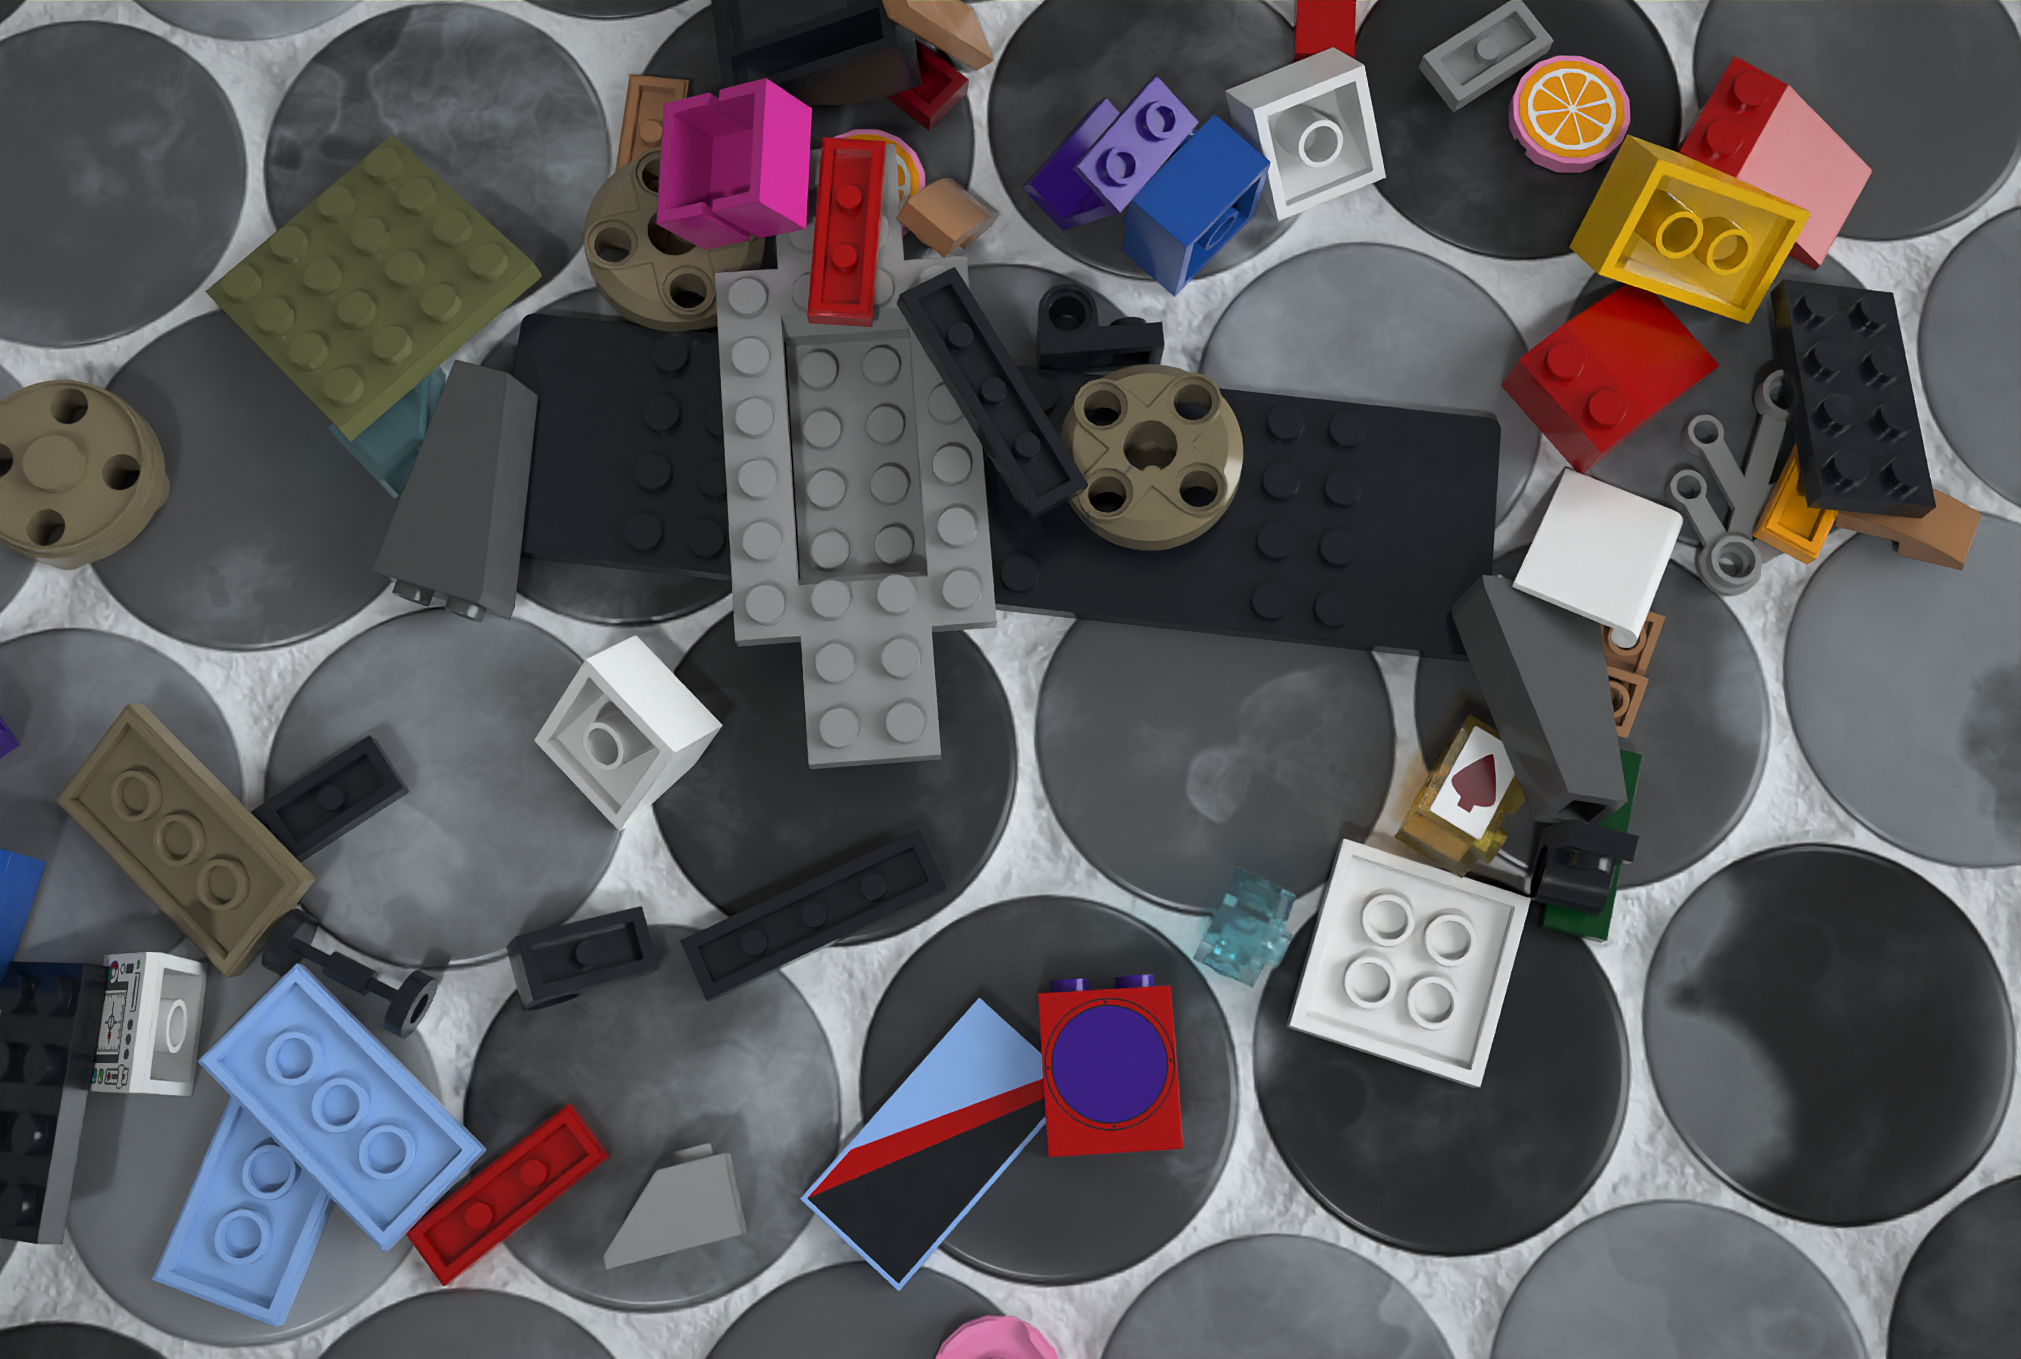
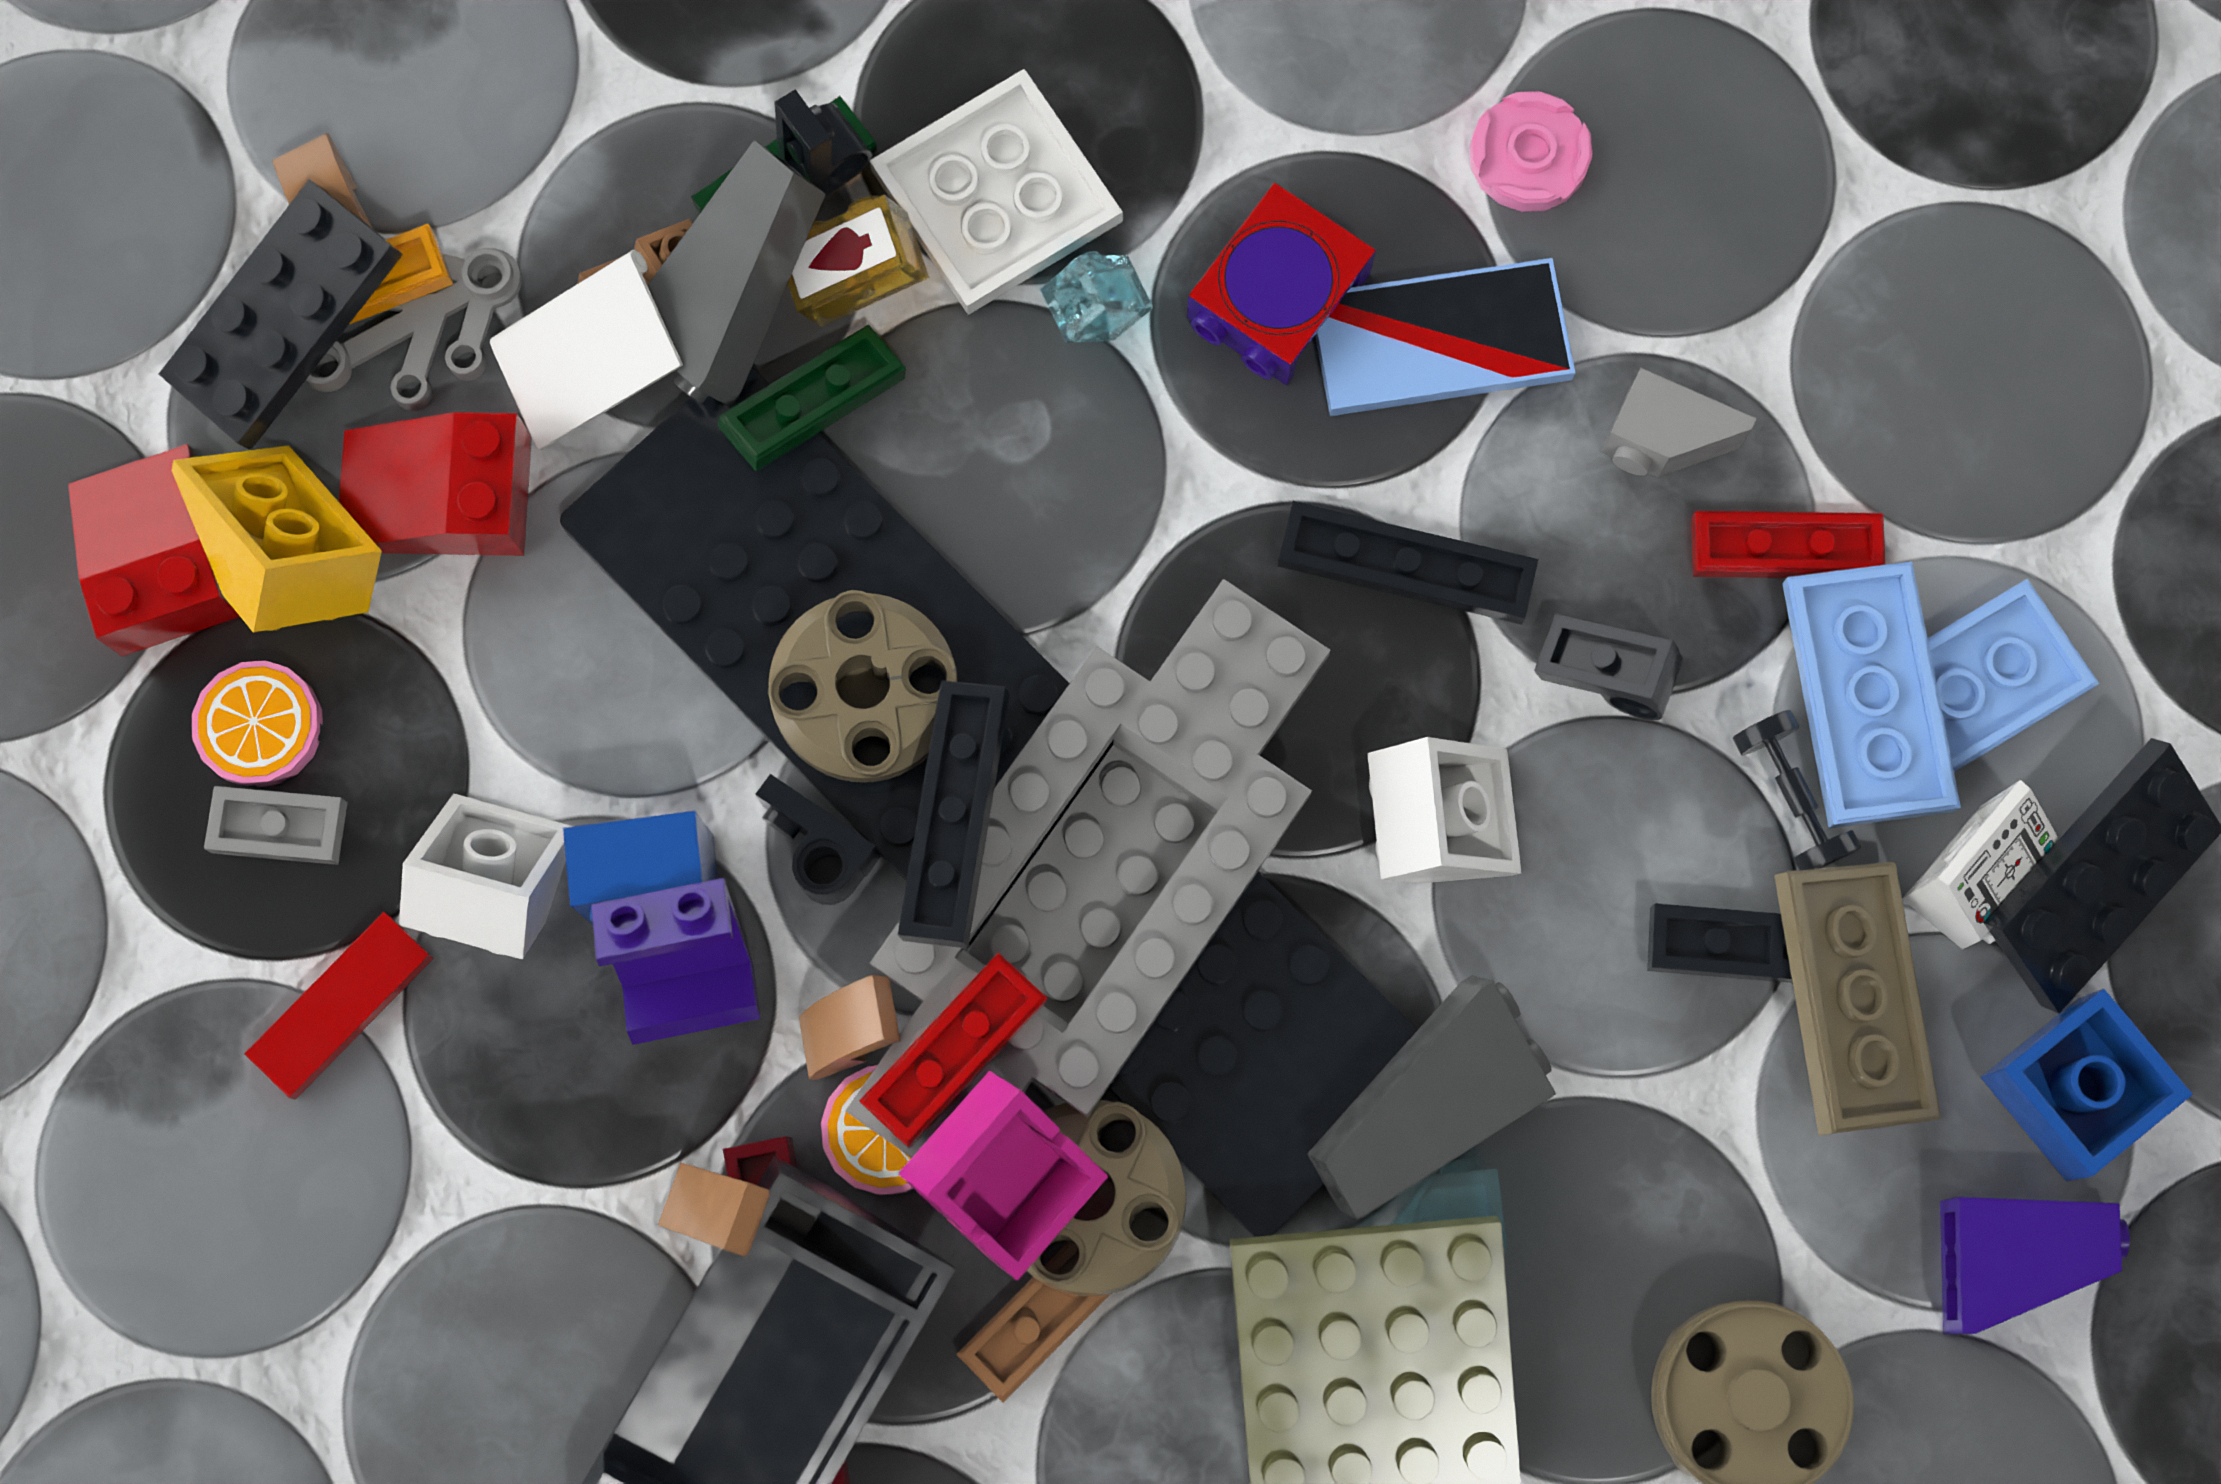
camera: 135 degrees left, 0 degrees up
(1396, 665) = (811, 397): none -> dark green tile

